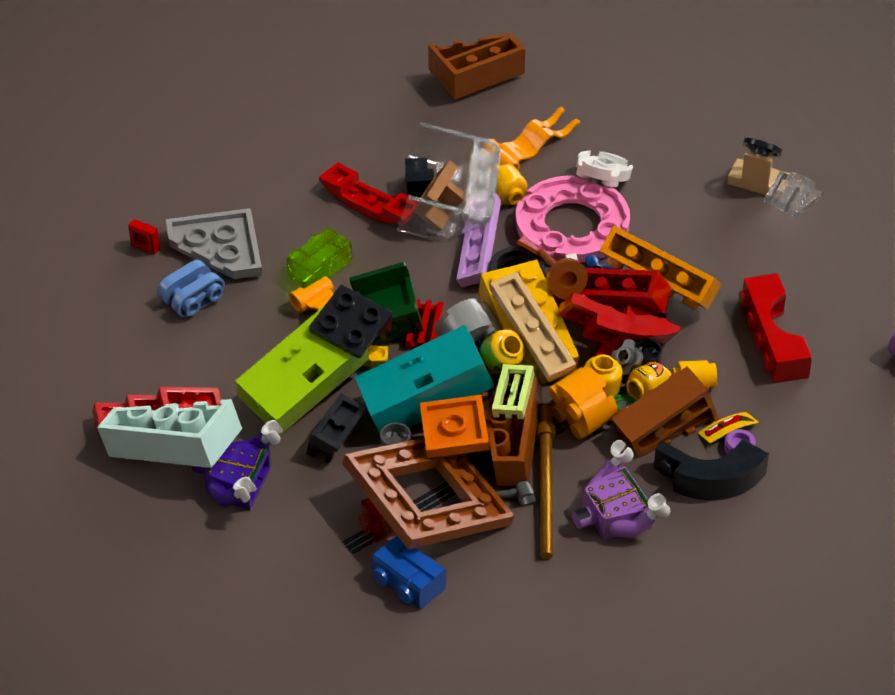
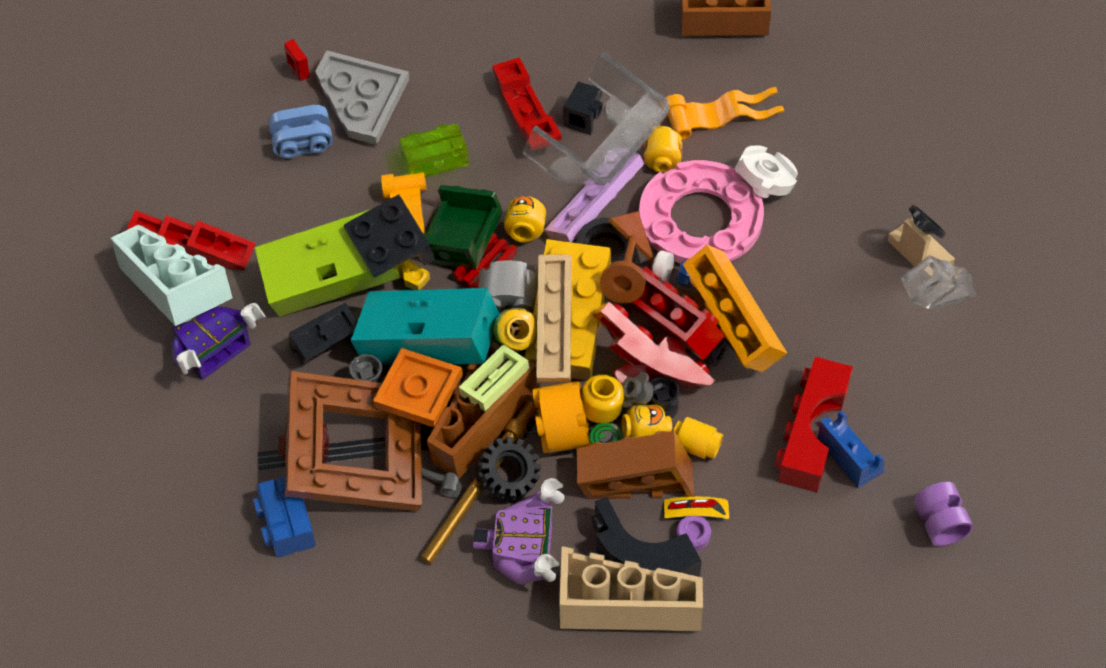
camera: 30 degrees right, 10 degrees up
(436, 277) = (525, 219): none -> yellow head
(442, 189) = (585, 133): medium nougat panel -> none
(560, 470) = (521, 456): none -> black tyre
(729, 504) = (625, 596): none -> tan wedge
(818, 339) = (849, 451): none -> blue hinge

